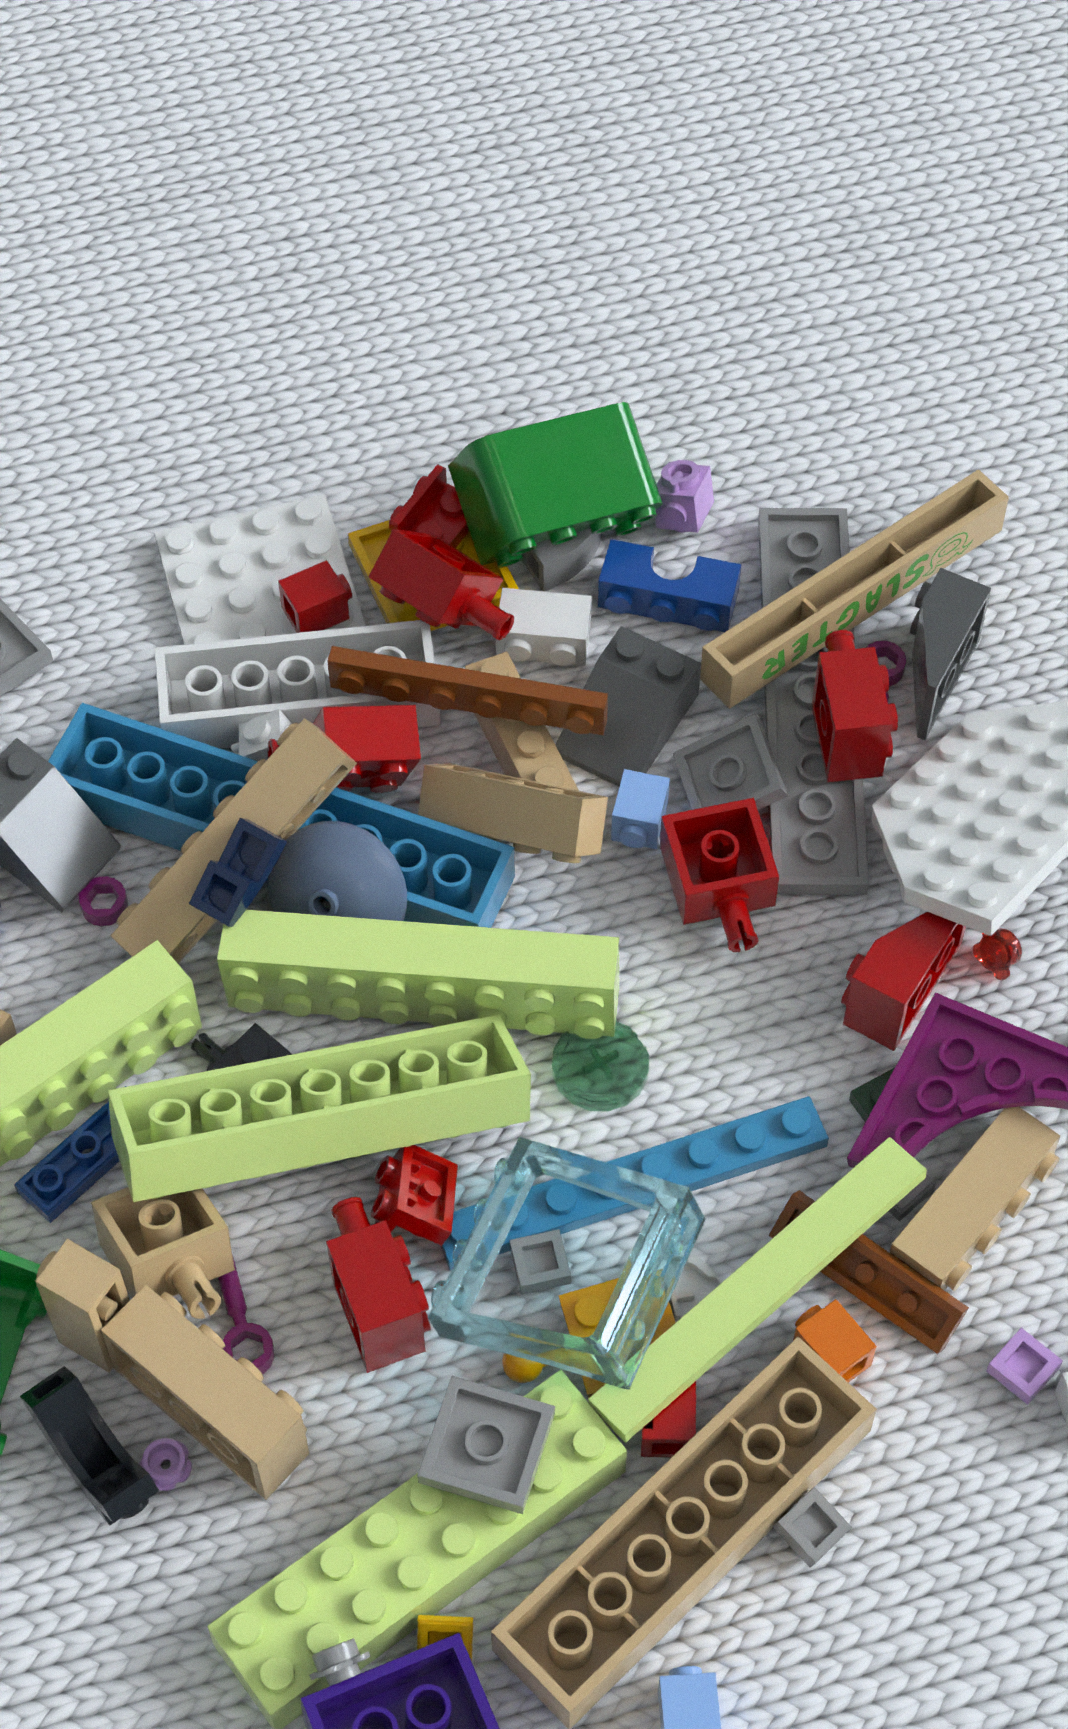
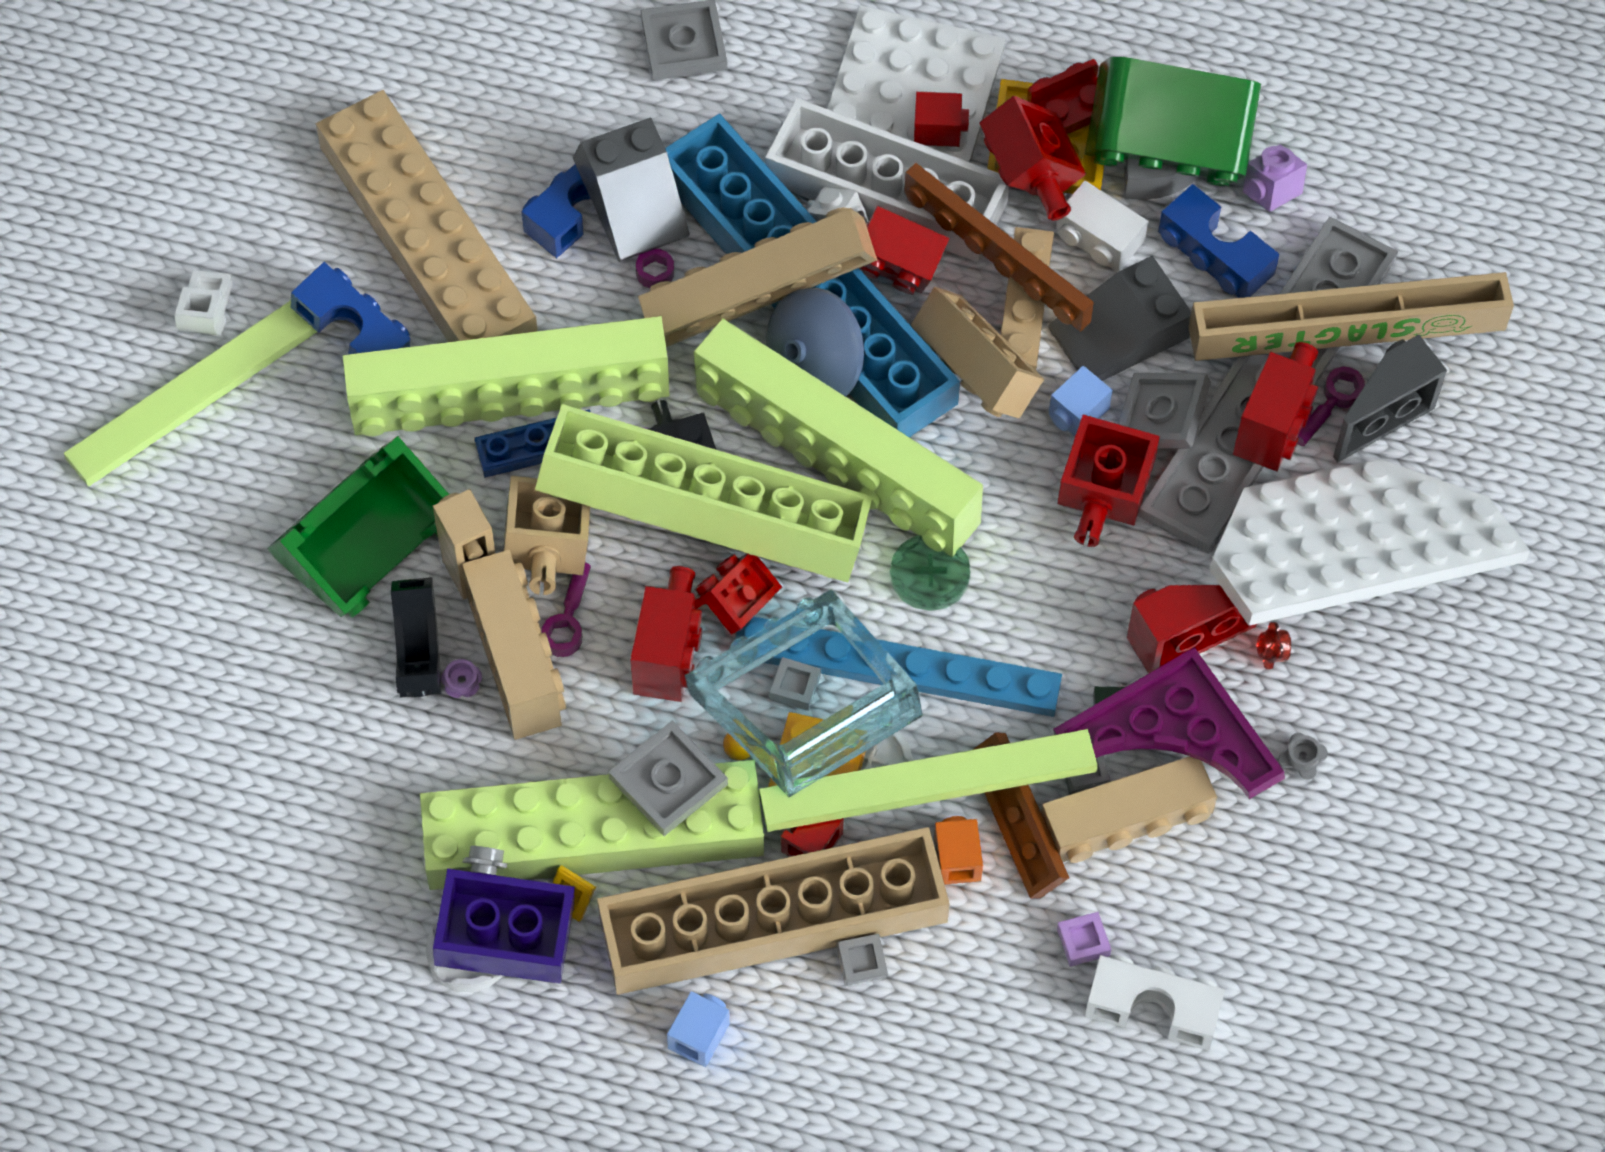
camera: 30 degrees right, 5 degrees up
(239, 874) = (743, 299): dark blue slope -> none

